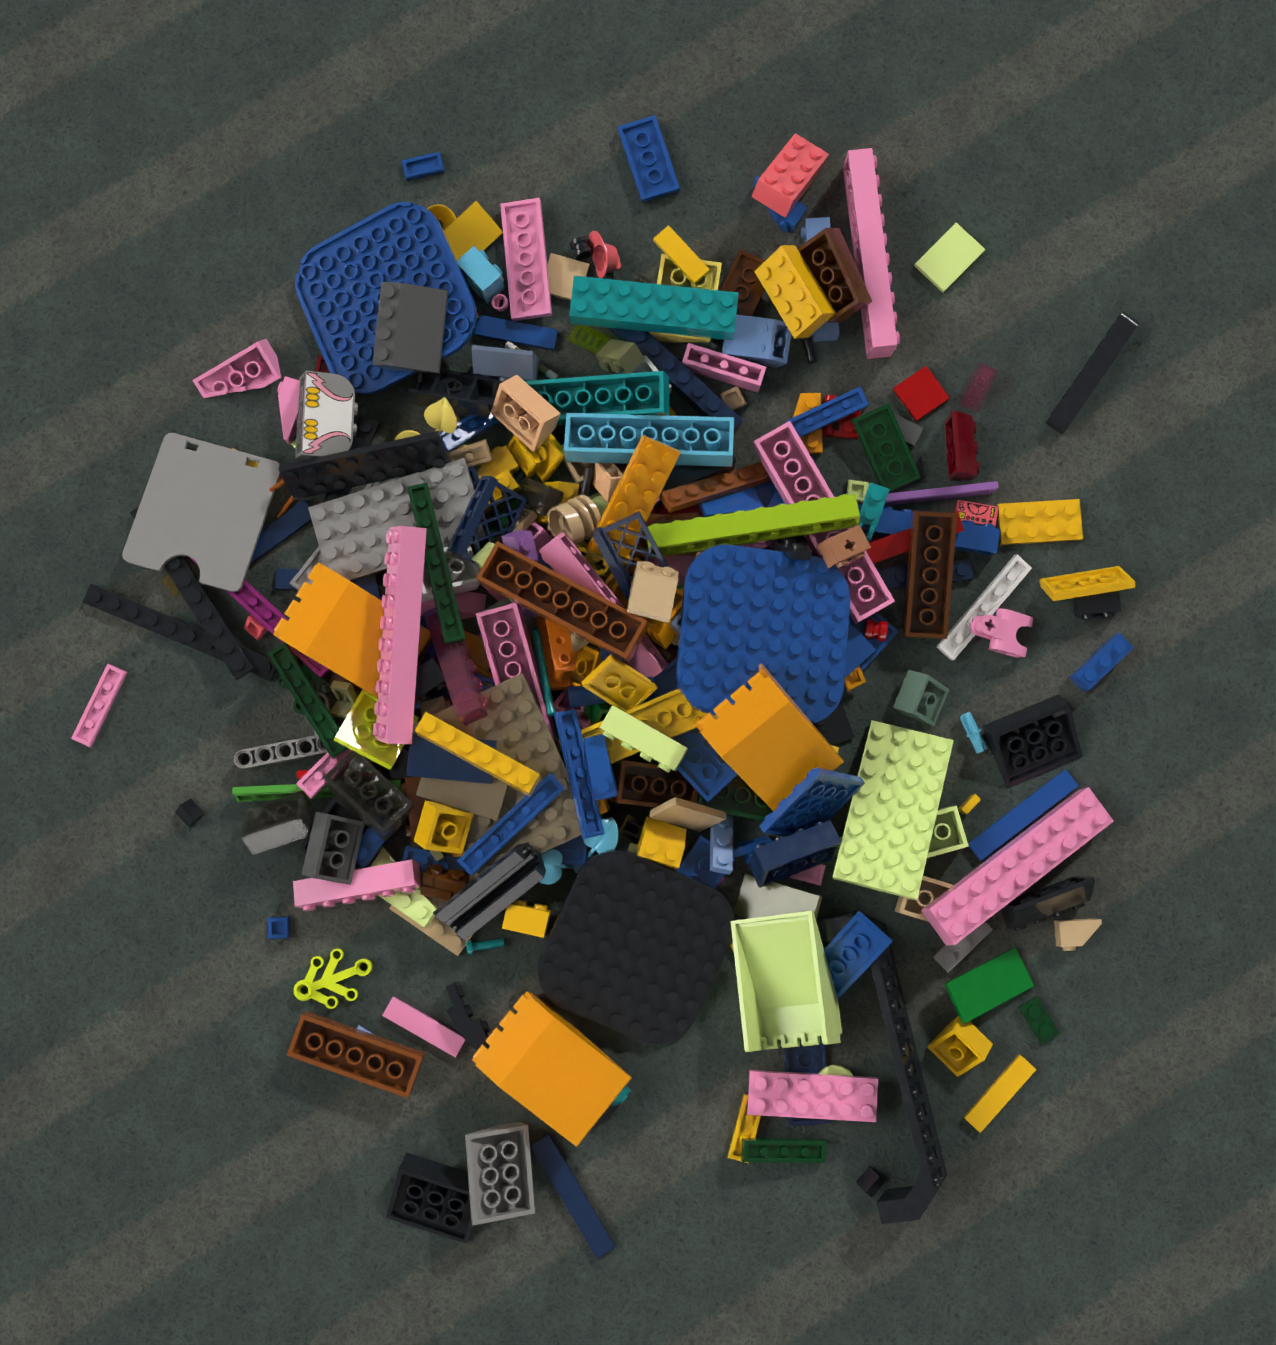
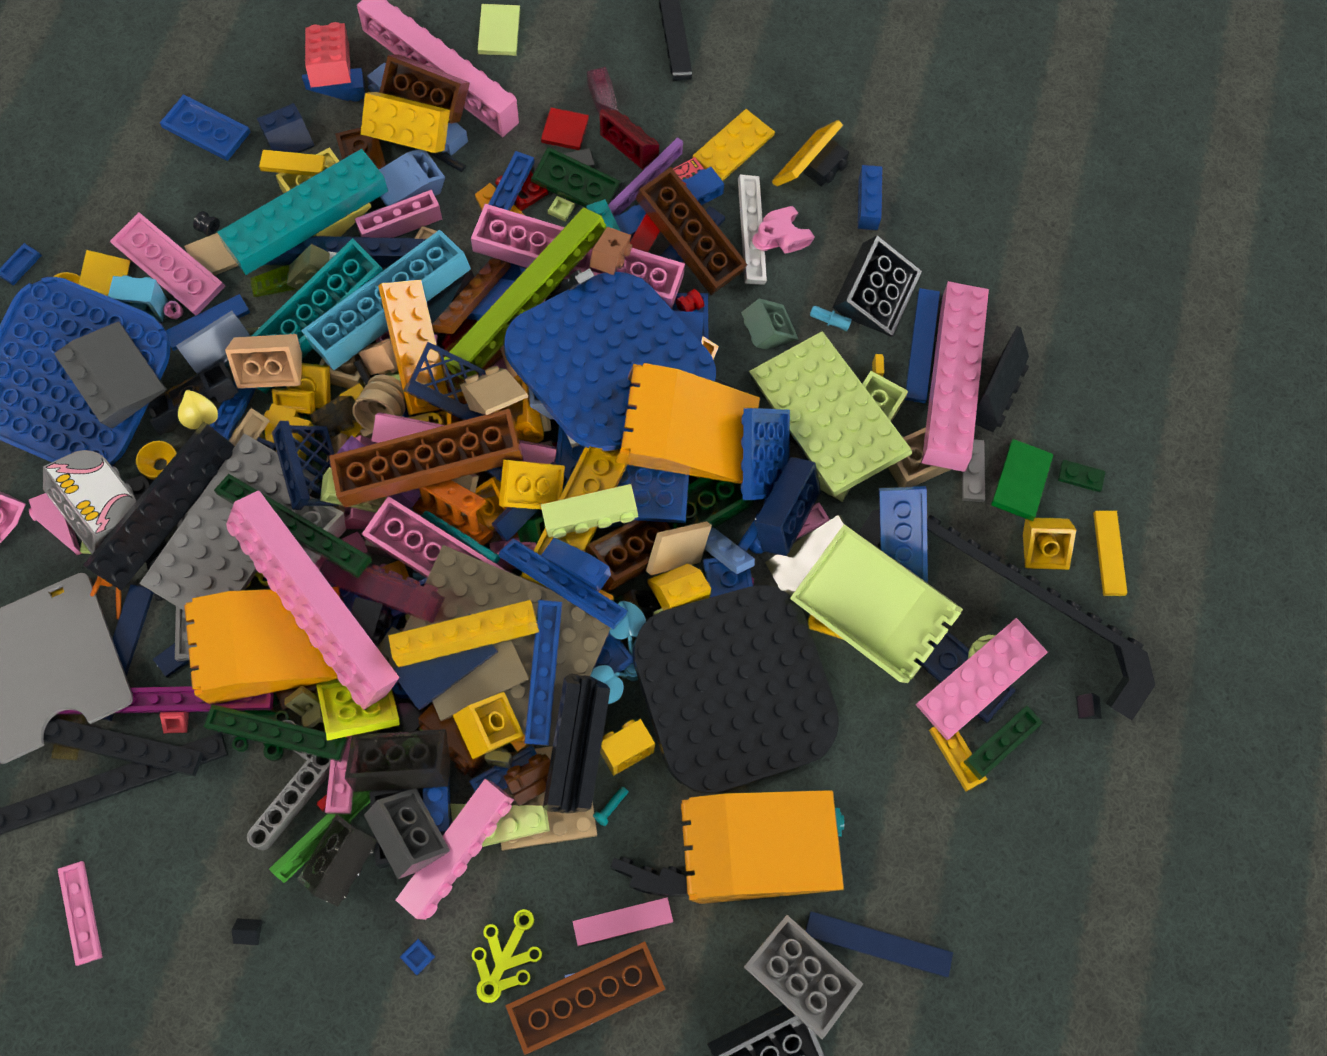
camera: 45 degrees left, 15 degrees down
(389, 410) = (150, 454): none -> yellow piece
(604, 255) = (226, 212): coral piece -> none
(703, 216) = (285, 130): none -> dark blue slope
(855, 461) = (561, 208): none -> yellowish green tile
(1074, 932) = (1041, 391): tan slope -> none

